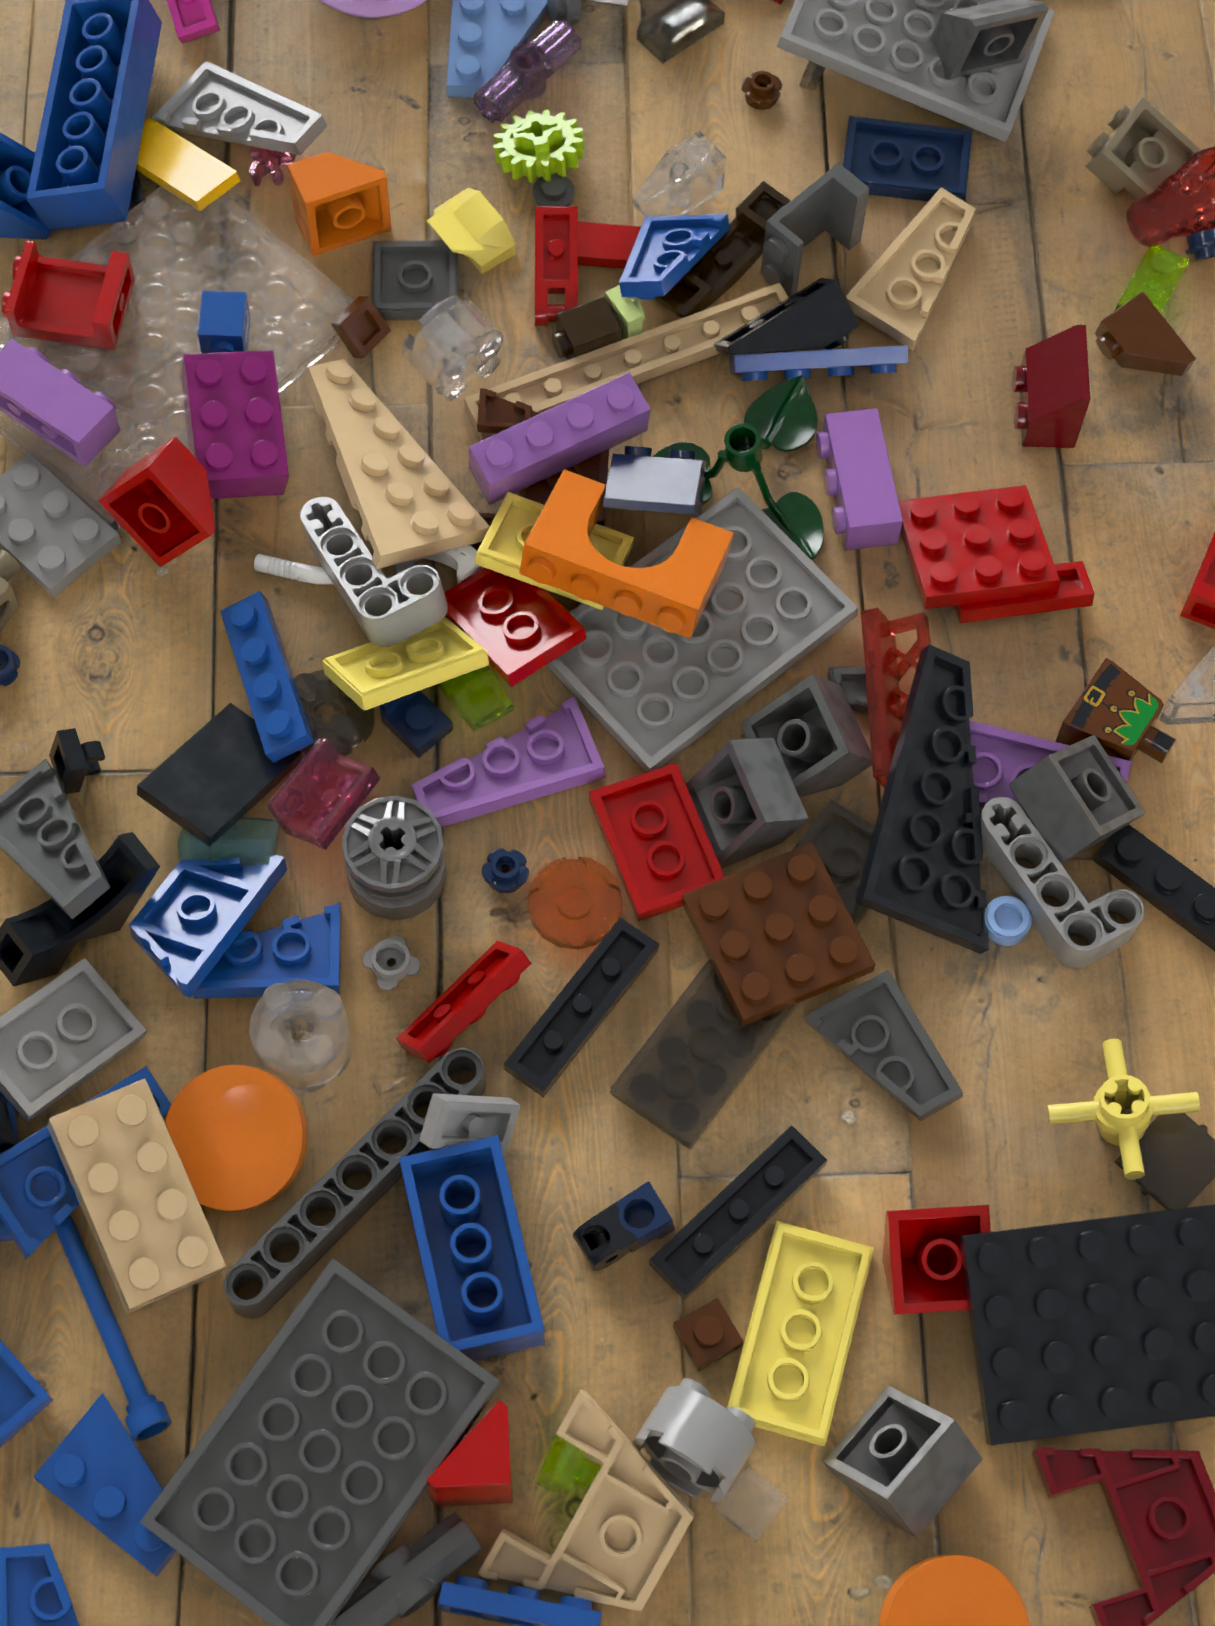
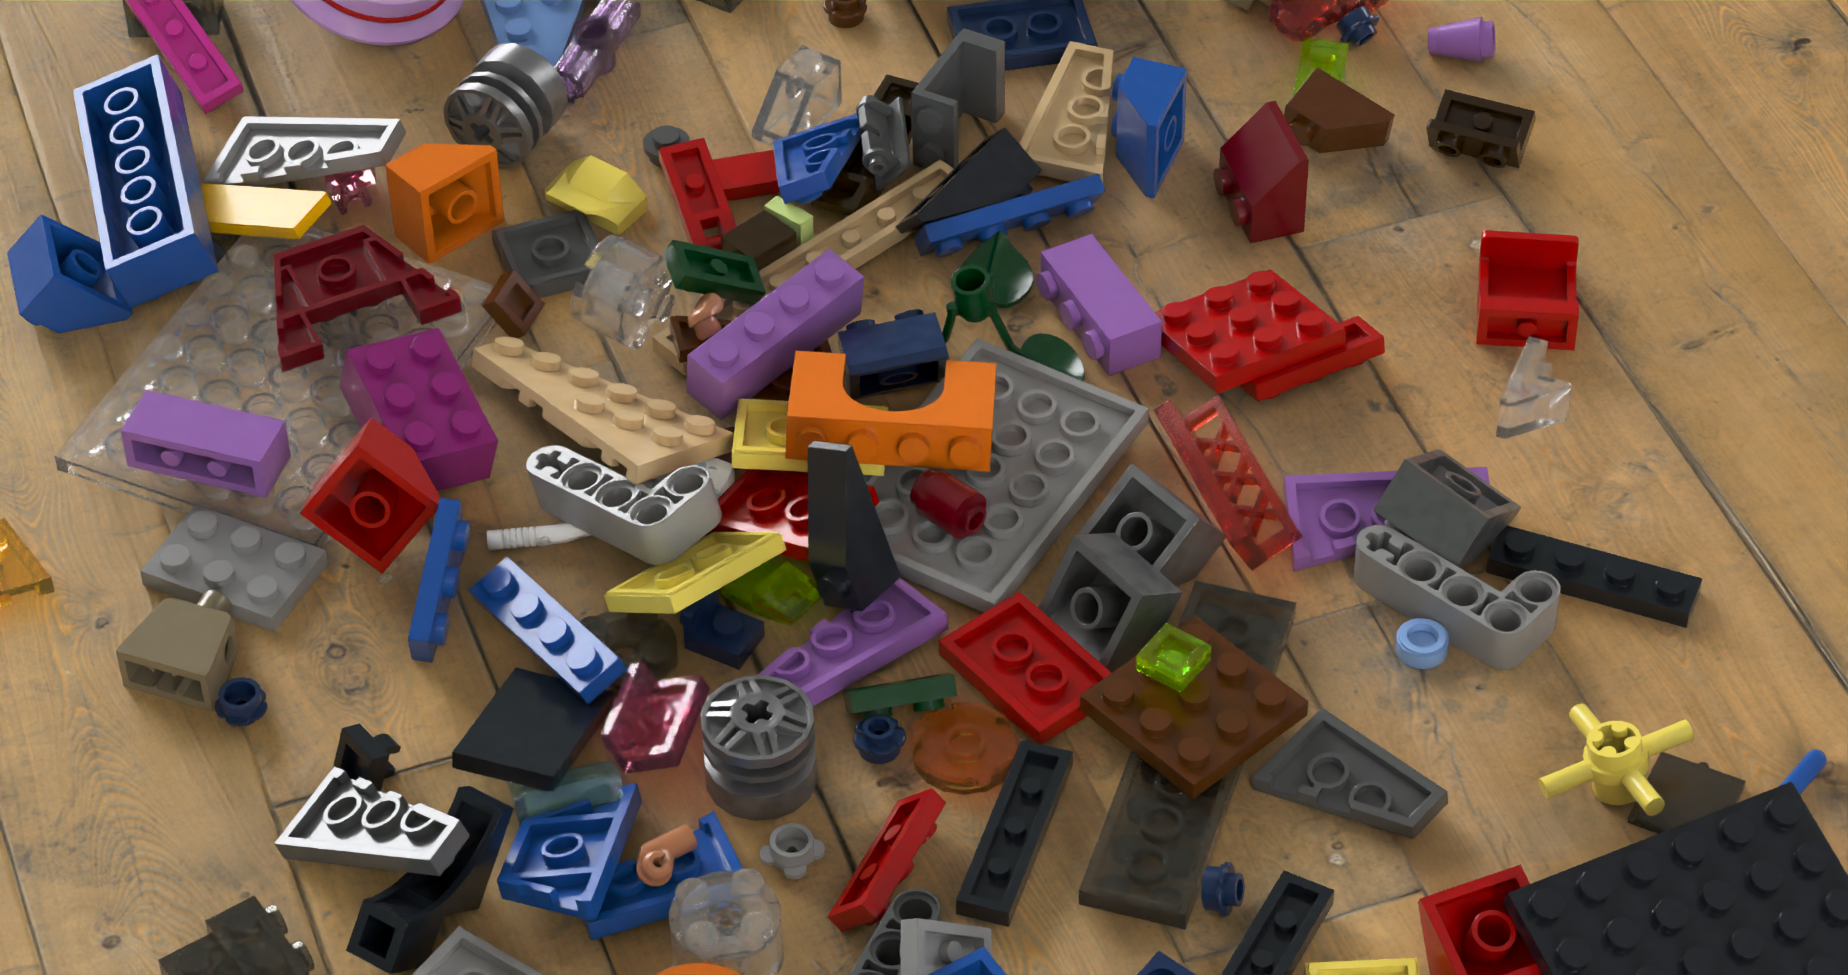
camera: 15 degrees left, 20 degrees down
(68, 298) = (188, 351): red panel -> none
(192, 601) = (439, 580): none -> blue wing
(219, 256) = (339, 277): none -> dark red wing
(224, 322) = (367, 318): blue brick -> none
(272, 940) = (658, 855): none -> nougat arm
(424, 119) = (506, 103): none -> flat silver wheel
(507, 396) = (704, 316): none -> nougat arm
(524, 832) = (923, 692): none -> dark green plate
(531, 356) = (714, 271): none -> dark green plate
(537, 673) = (844, 531): none -> black slope
(539, 146) = (635, 104): lime gear -> none
(644, 659) = (948, 503): none -> dark red brick
(732, 264) = (884, 139): none -> dark grey hinge
(734, 1123) = (1222, 888): none -> dark blue plate
(769, 892) = (1173, 657): none -> clear neon green plate
(853, 685) = (1180, 482): dark grey tile -> none
(929, 820) = (1304, 568): black wing -> none
(975, 299) = (1149, 120): none -> blue slope
(1119, 716) = (1460, 428): torso -> none

